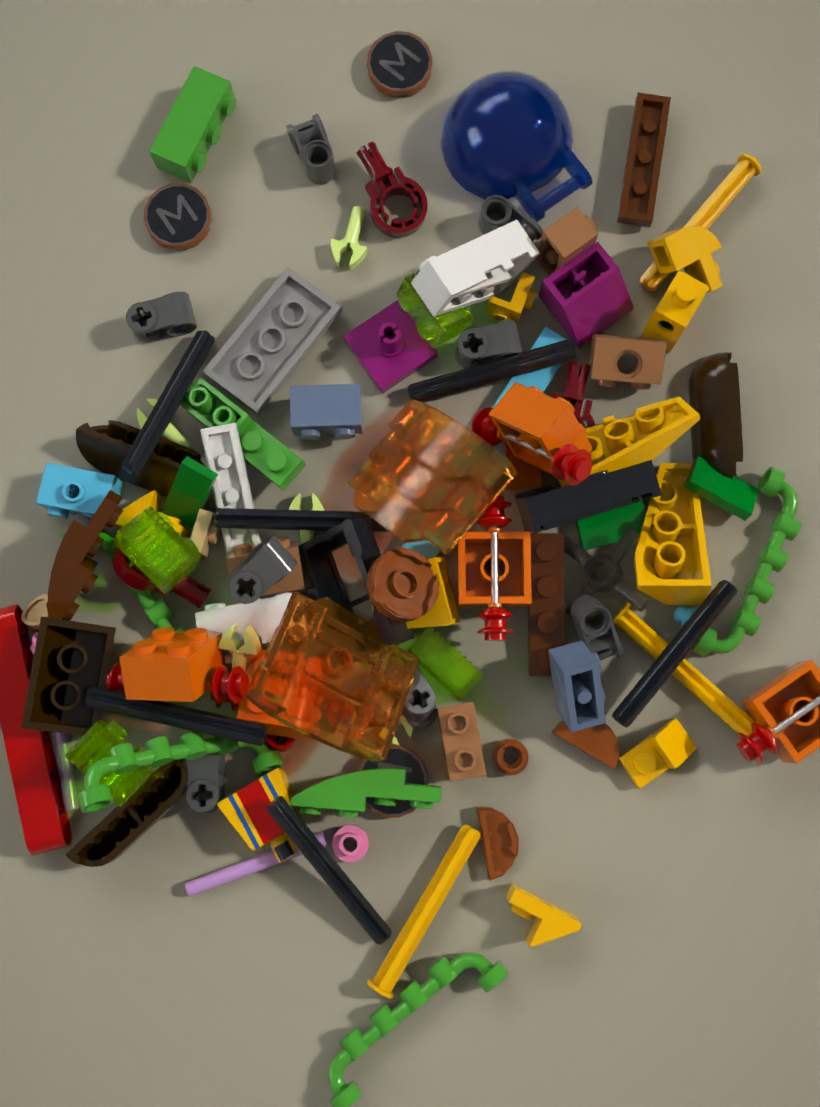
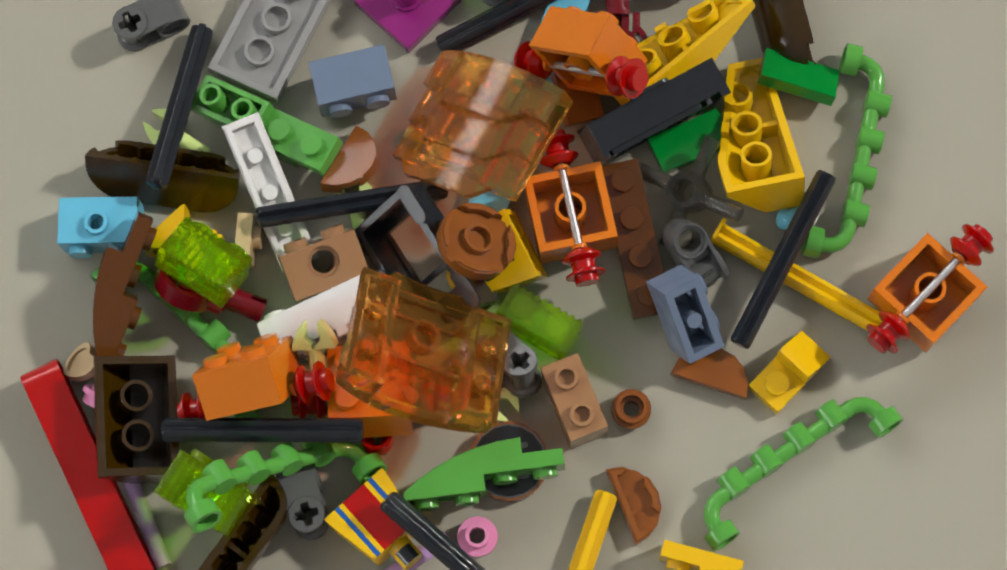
camera: 10 degrees left, 5 degrees down
(189, 491) = (223, 196): green tile -> none
(266, 567) = (325, 253): dark grey piece -> none
(311, 485) = (353, 163): none -> dark orange tile
(622, 830) = (768, 461): none -> bright green bar

